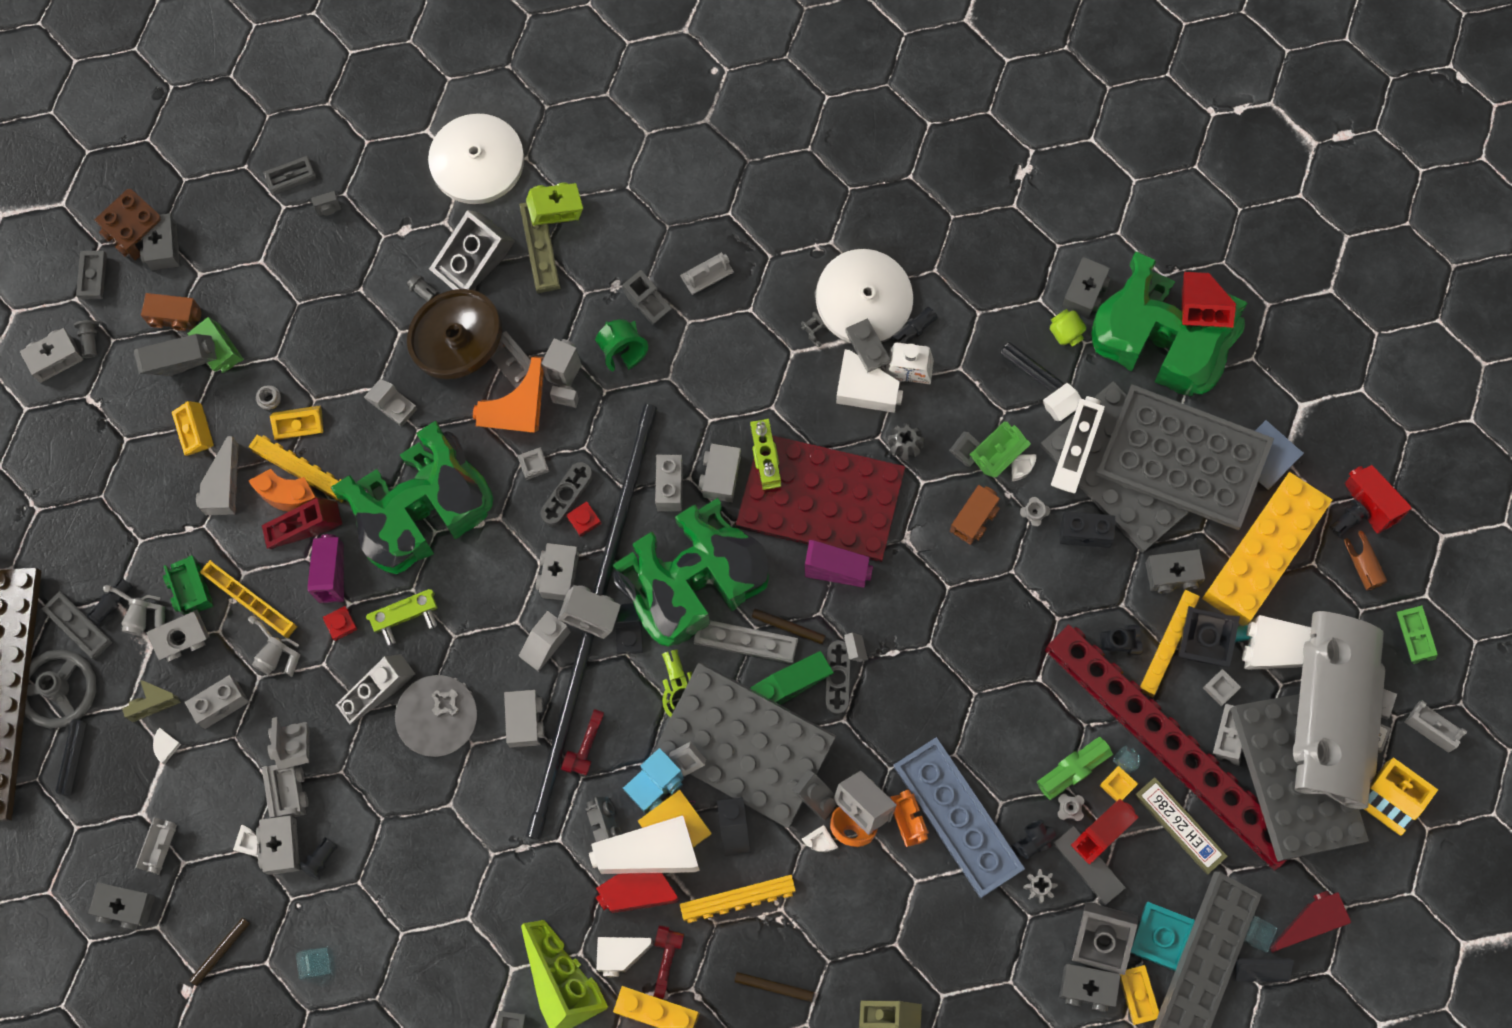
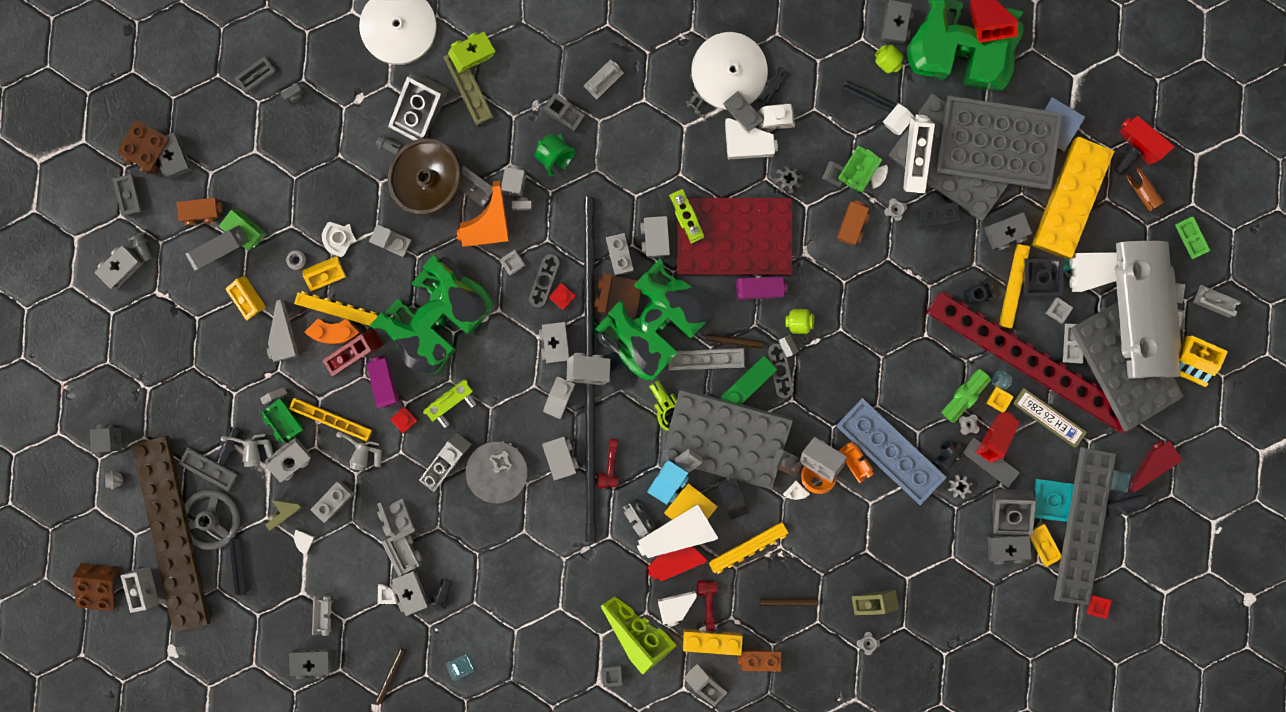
camera: 20 degrees left, 15 degrees up
(185, 551) = (273, 395): none -> light grey tile
(326, 383) = (337, 238): none -> white animal
(647, 520) = (617, 289): none -> reddish brown bracket
(878, 619) = (800, 321): none -> lime head

